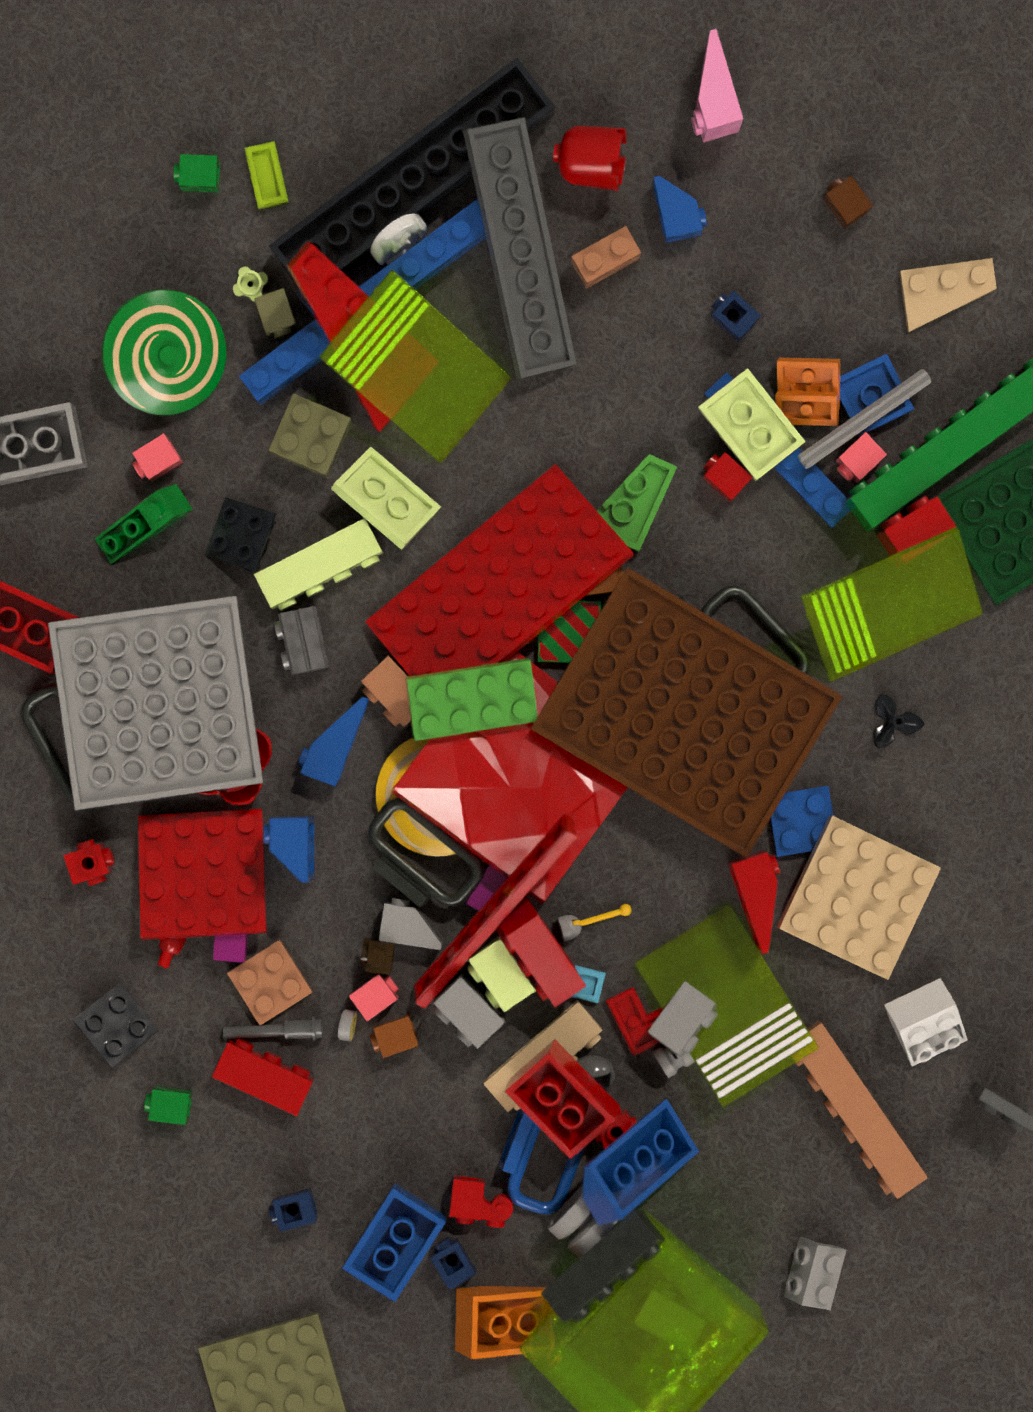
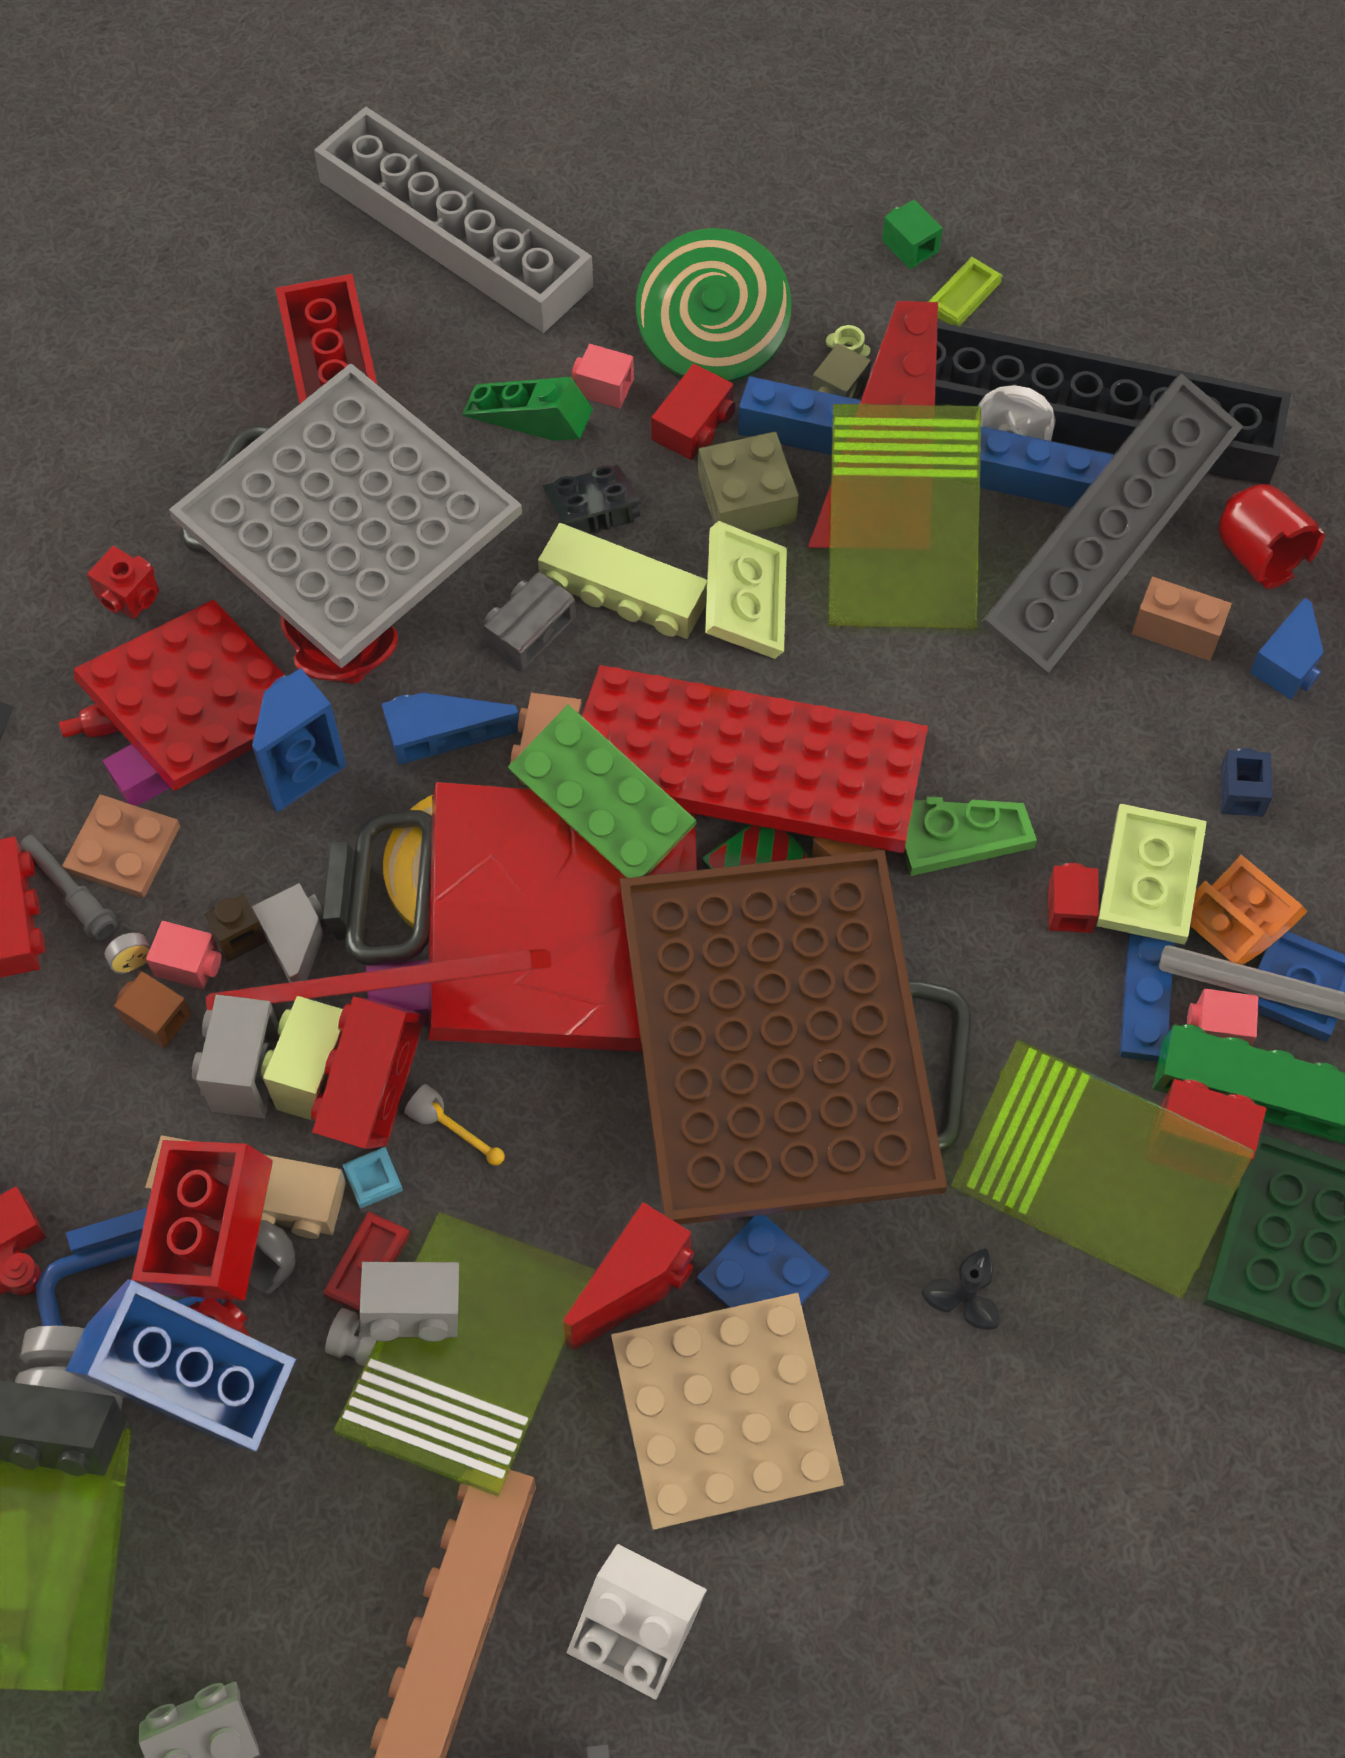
camera: 55 degrees right, 25 degrees down
(229, 425) = (693, 412): none -> red brick

